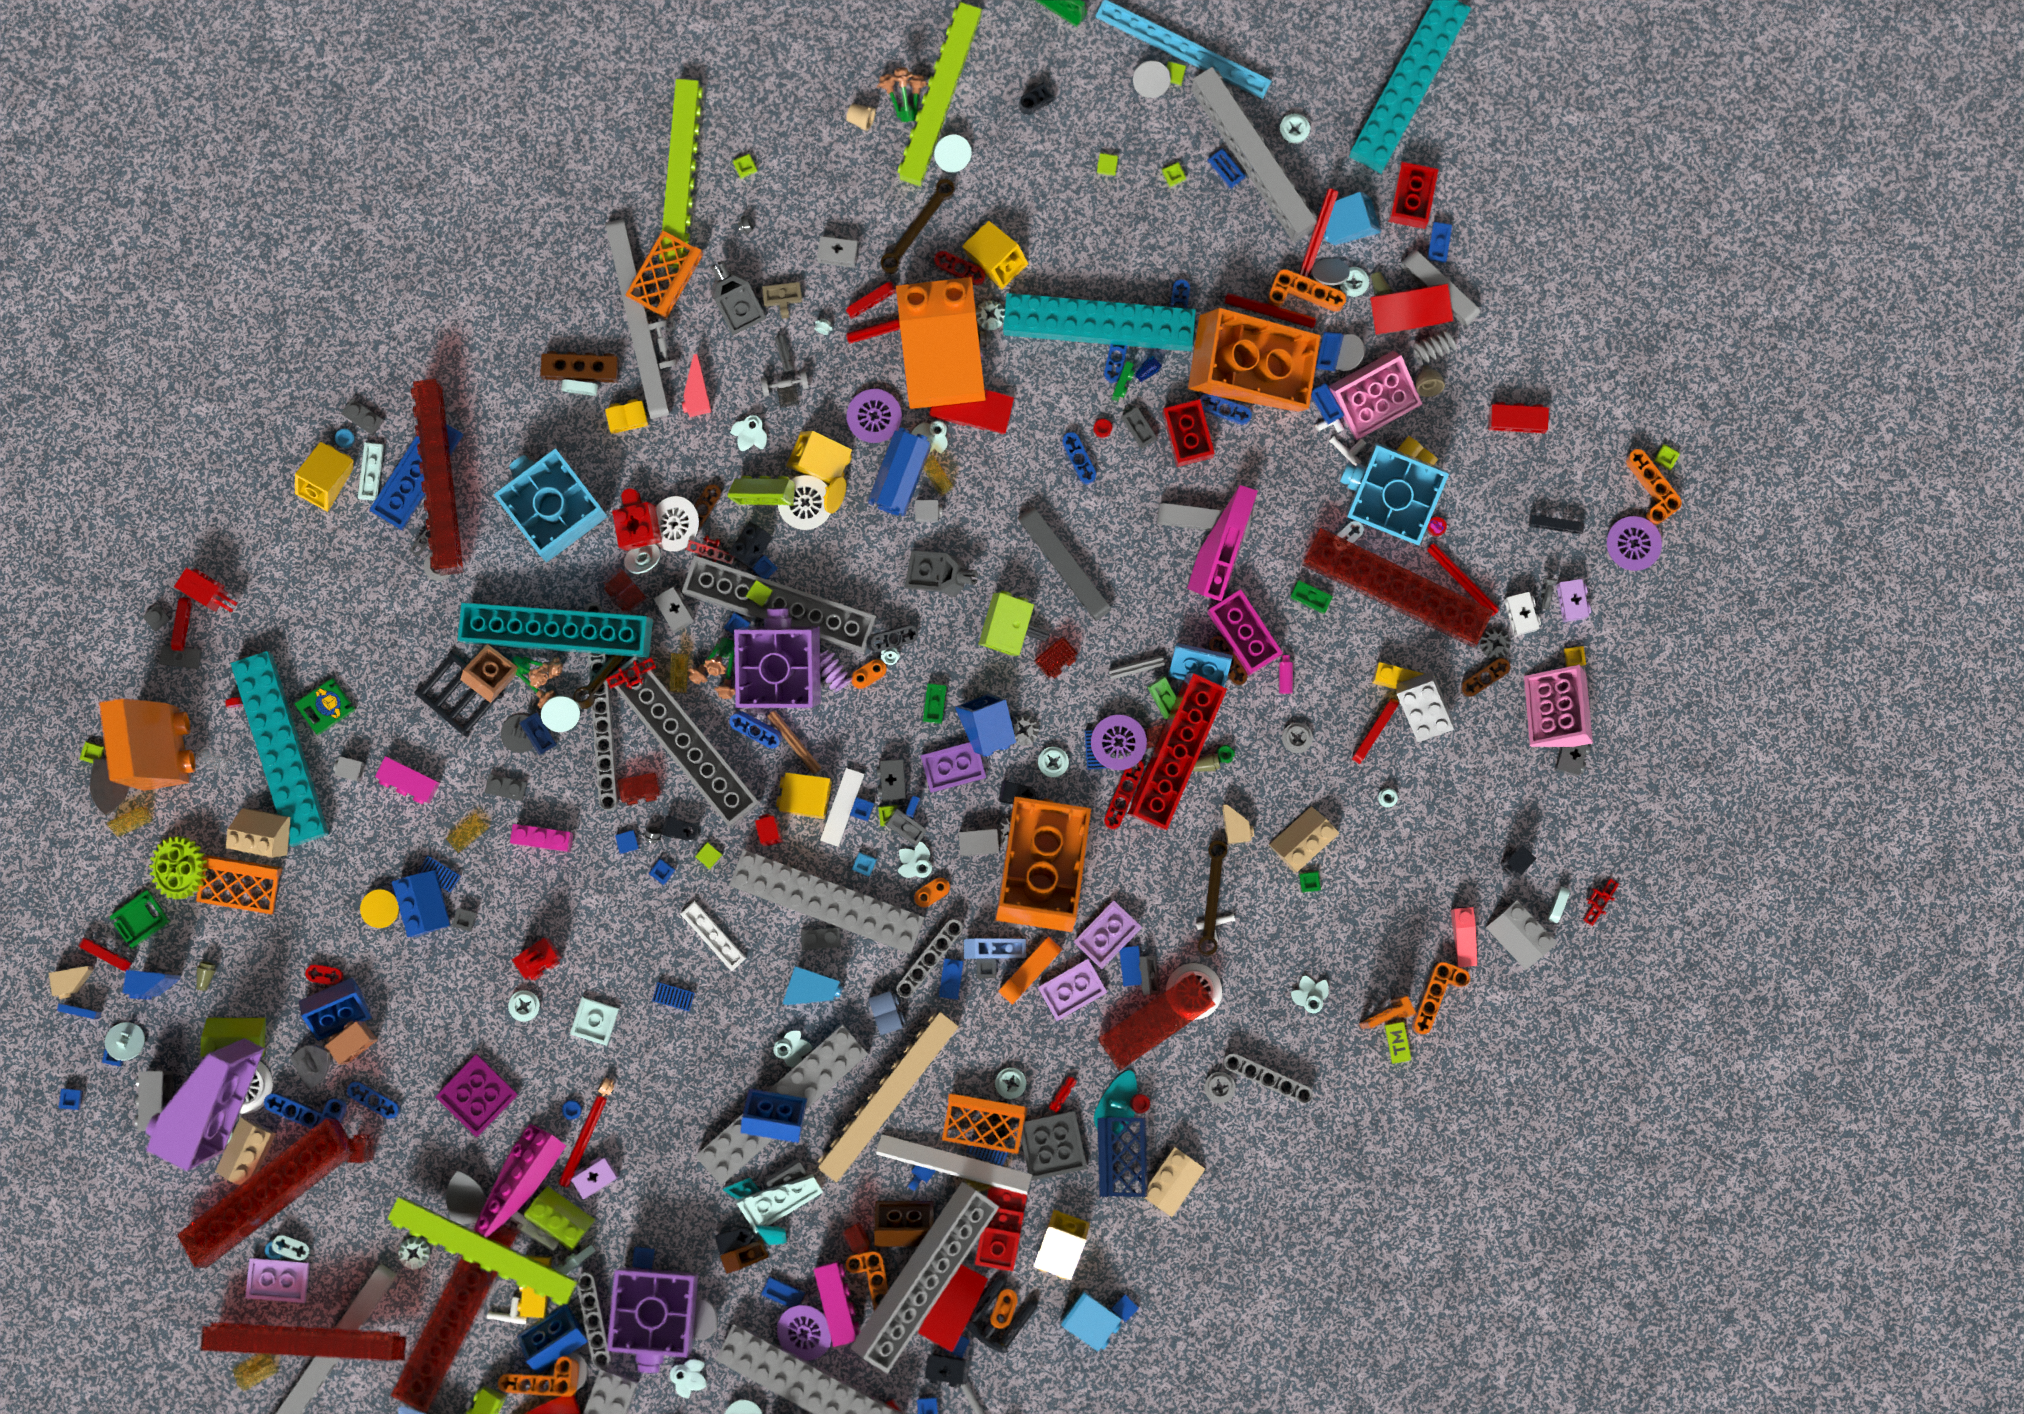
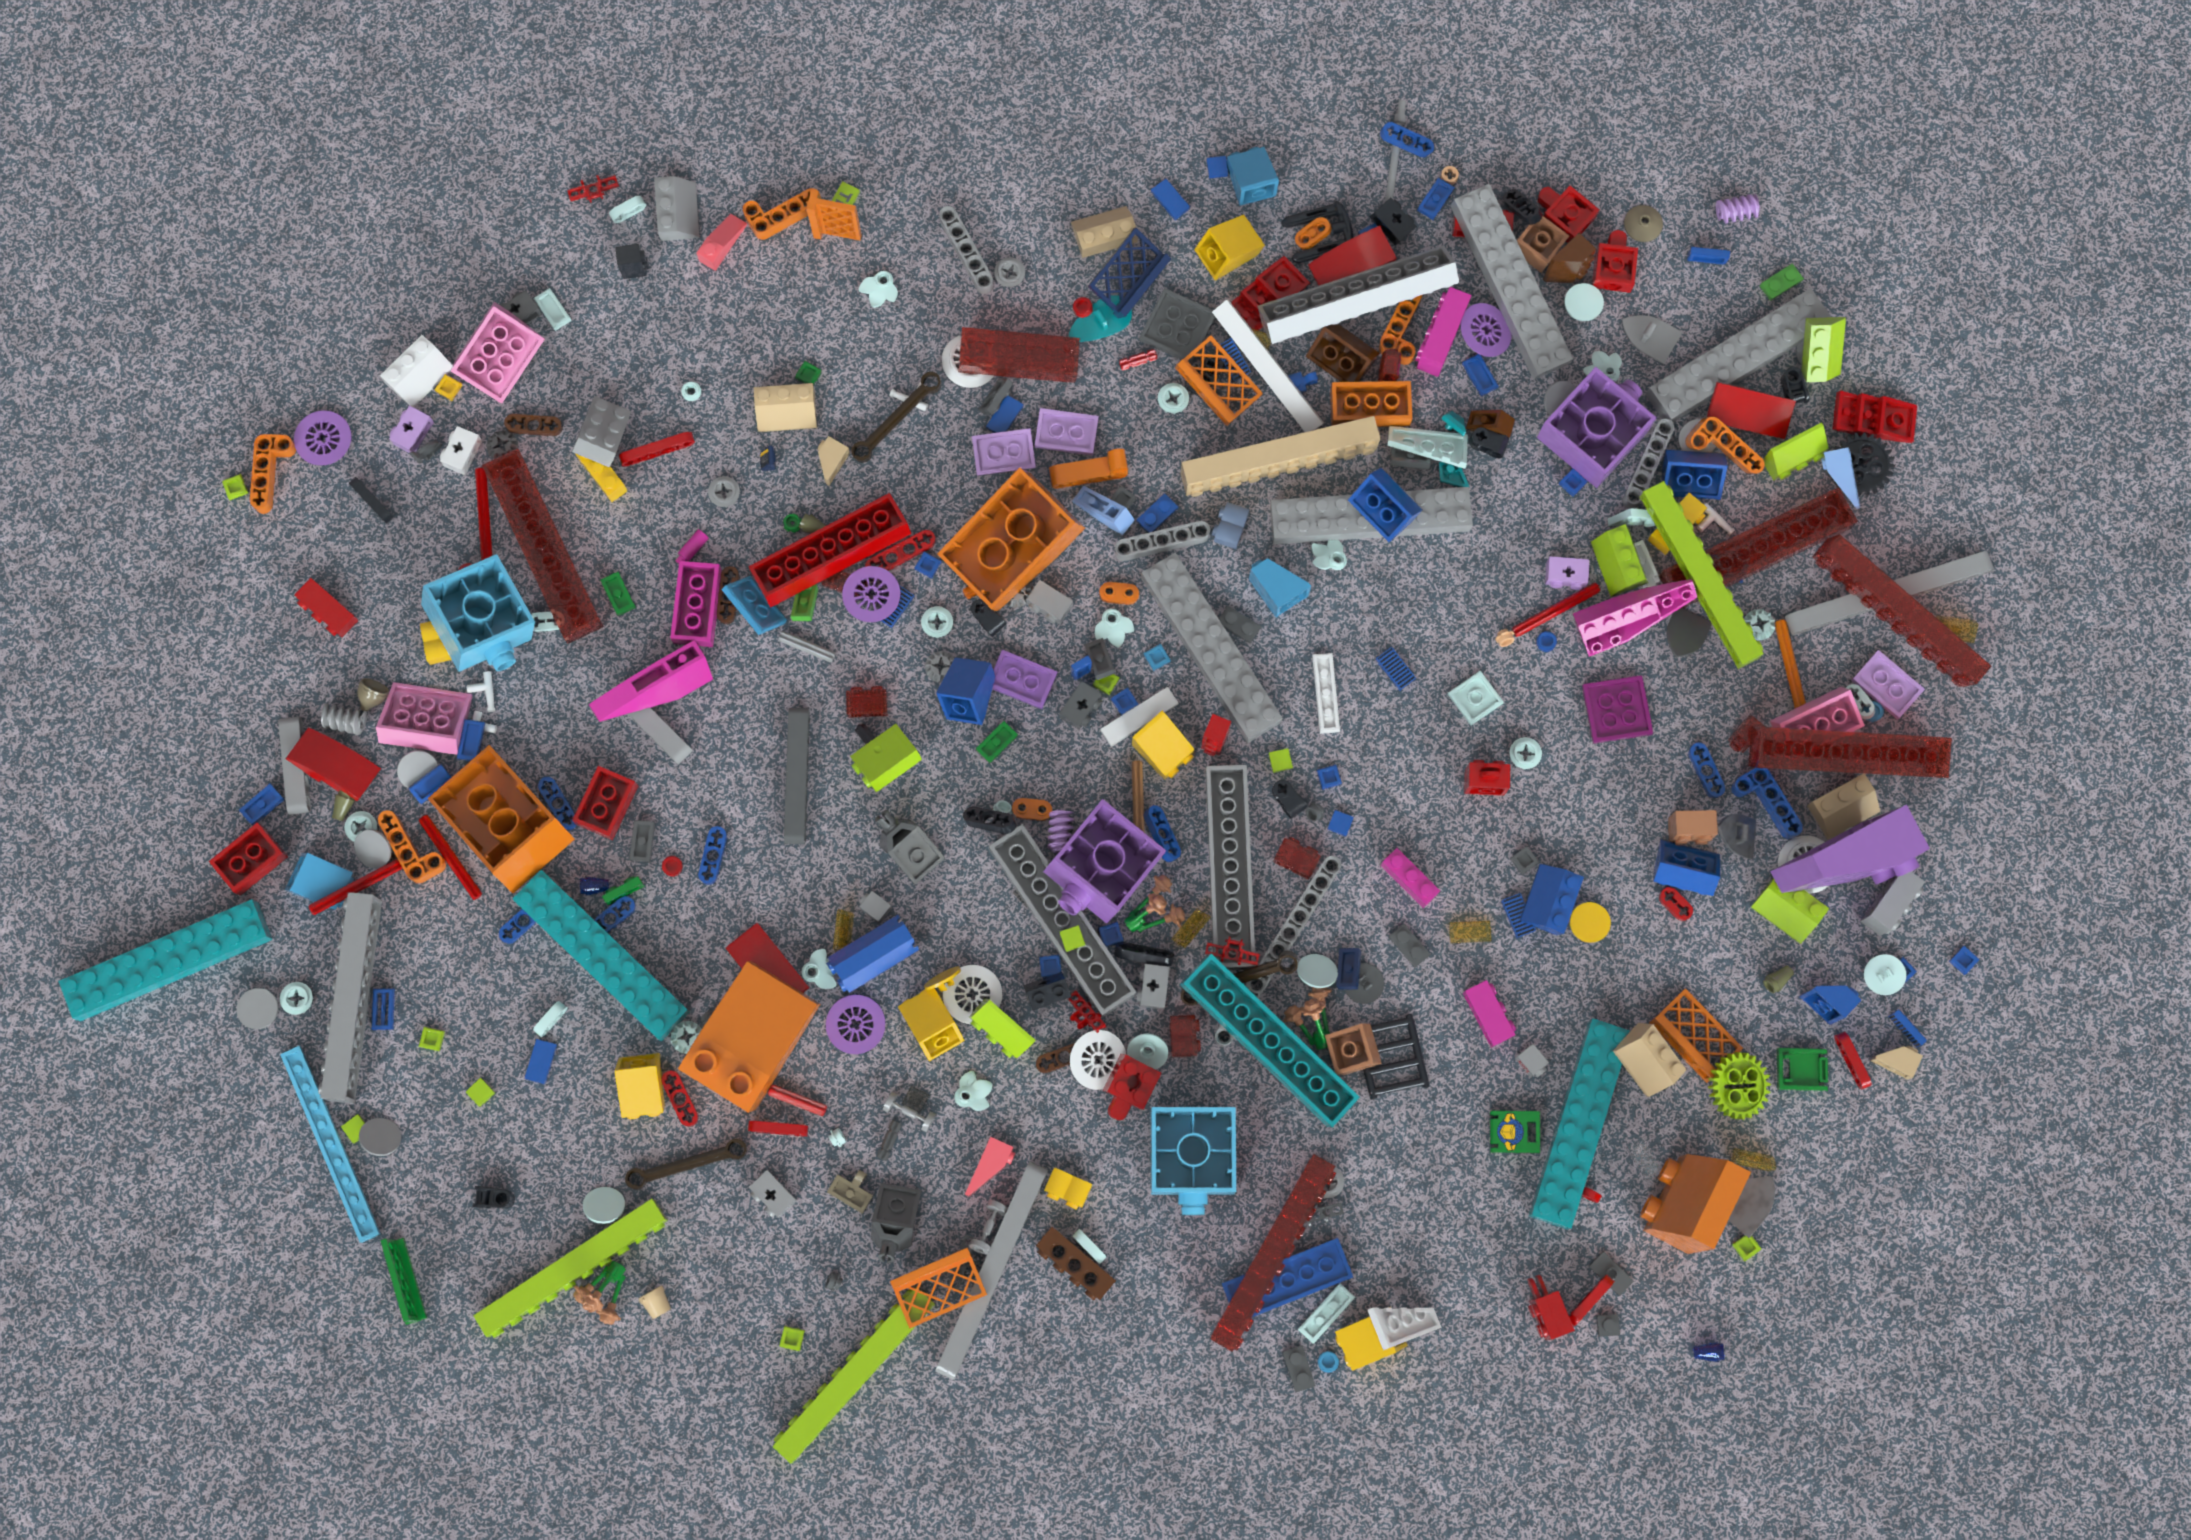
camera: 140 degrees left, 5 degrees down
(67, 653) = (1709, 1352): none -> clear blue cone
(304, 498) = (1402, 1324): none -> white wing
(307, 1215) = (1829, 712): none -> bright pink brick
(364, 1236) = (1790, 663): none -> orange axle
(703, 621) = (1144, 954): none -> black beam
(849, 1197) = (1385, 400): none -> orange brick
(1082, 218) = (540, 1061): none -> blue tile
(1096, 801) = (927, 565): none -> blue tile
(1099, 251) = (550, 1018): none -> light aqua beam
(1141, 1250) = (1170, 199): none -> blue tile
(1284, 789) = (767, 459): none -> dark blue slope
(1315, 99) = (257, 1008): none -> light grey piece
(1549, 780) = (552, 309): none -> light aqua tile
(1608, 648) = (416, 371): none -> white slope

